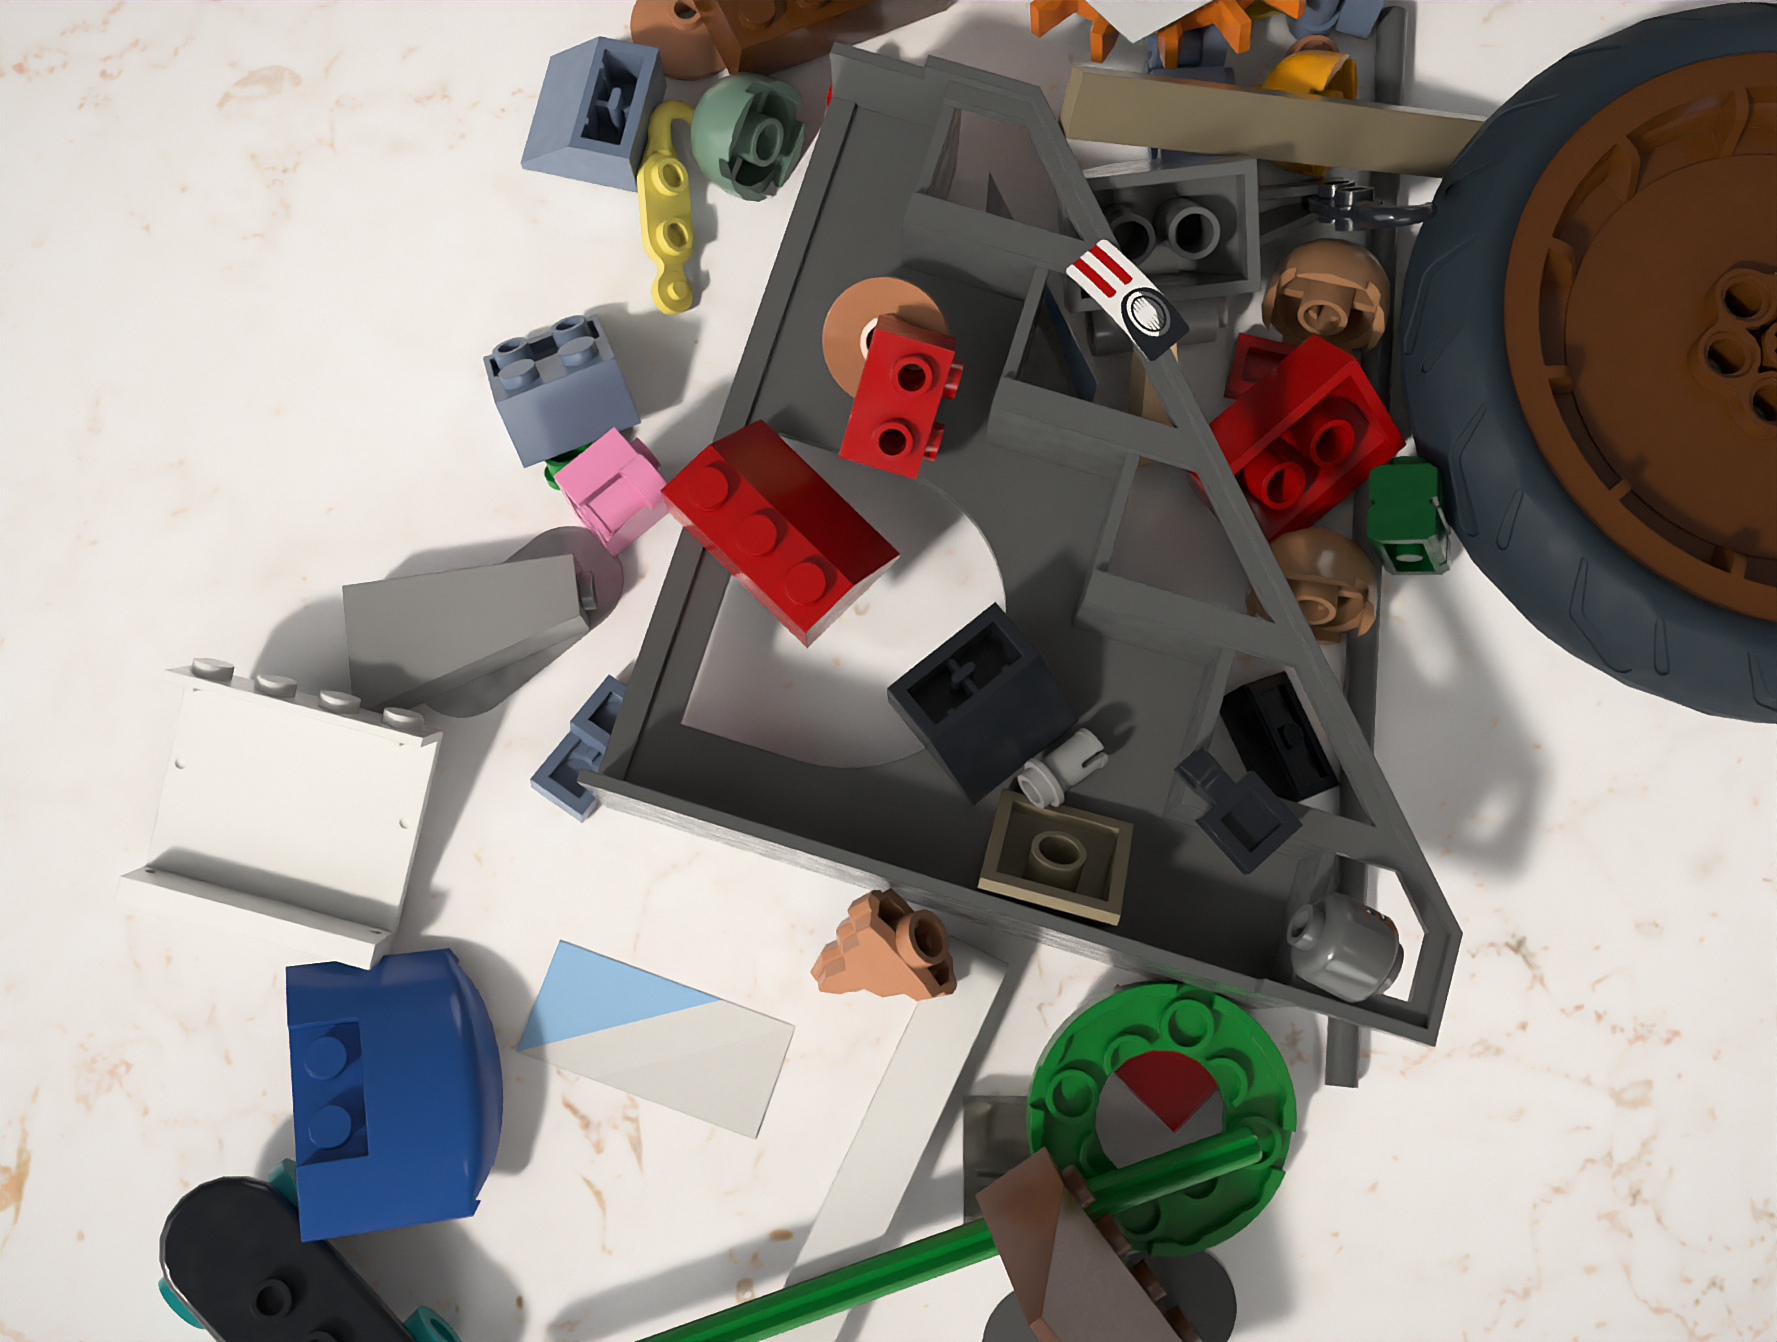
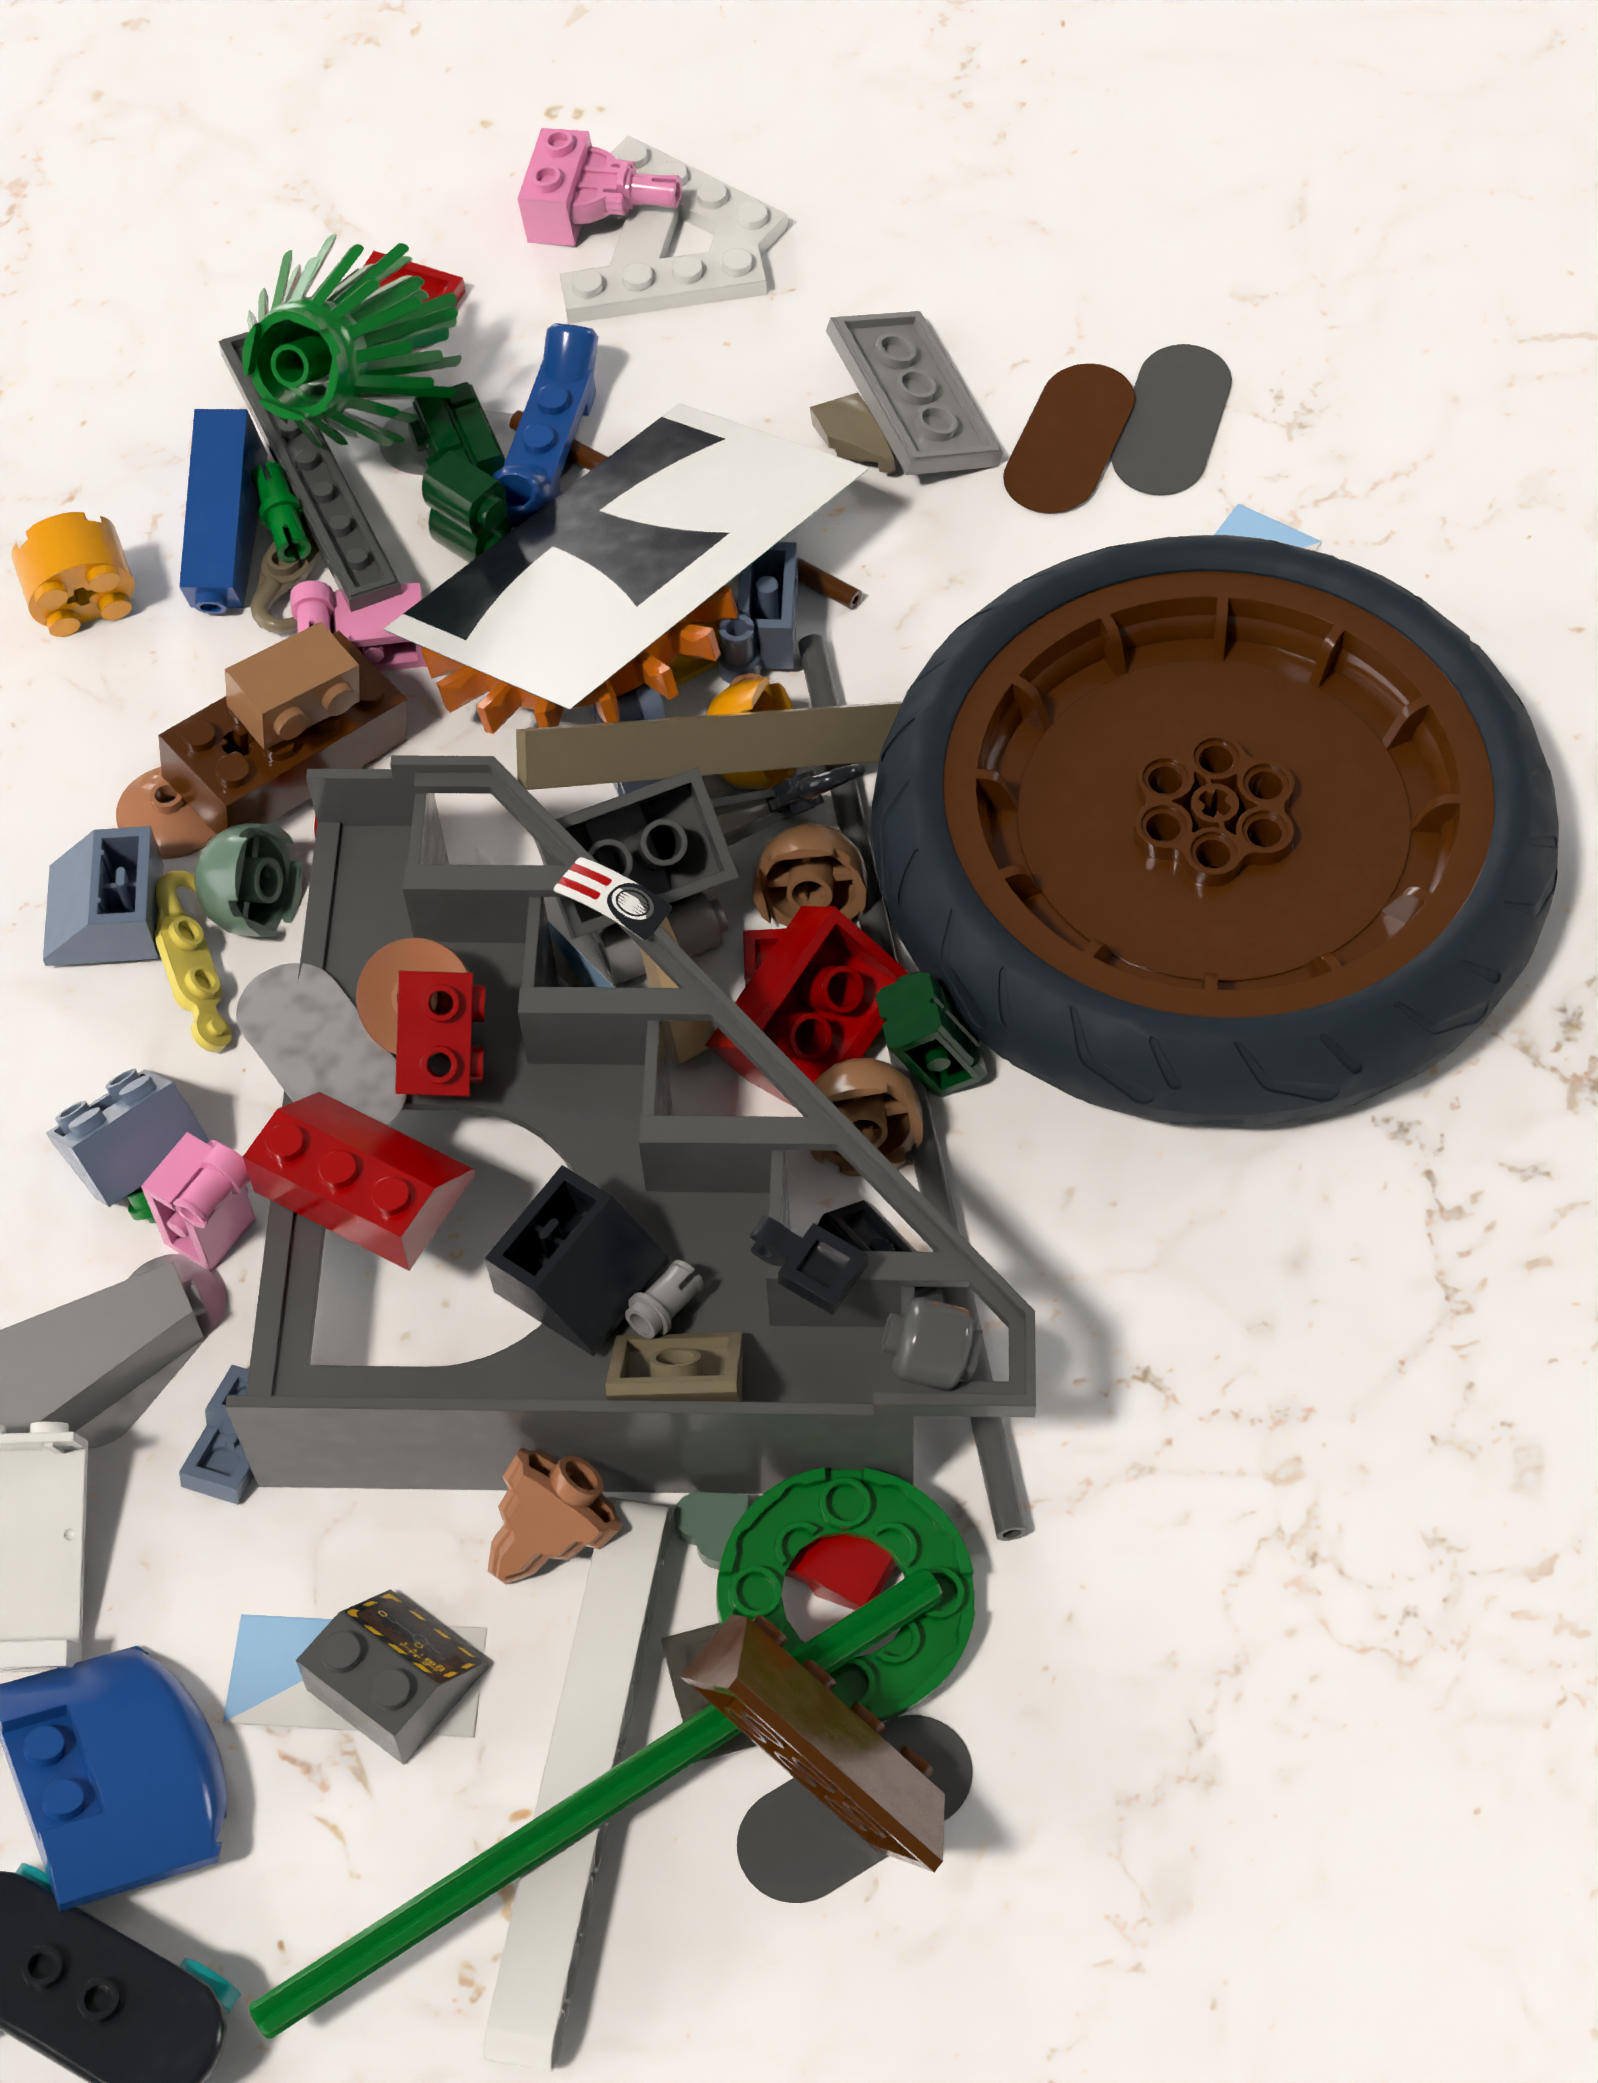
camera: 10 degrees left, 20 degrees down
(690, 1056) = (389, 1671): none -> dark grey slope
(772, 356) = (316, 1041): none -> flat silver sticker
(1047, 988) = (708, 1521): none -> sand green tile

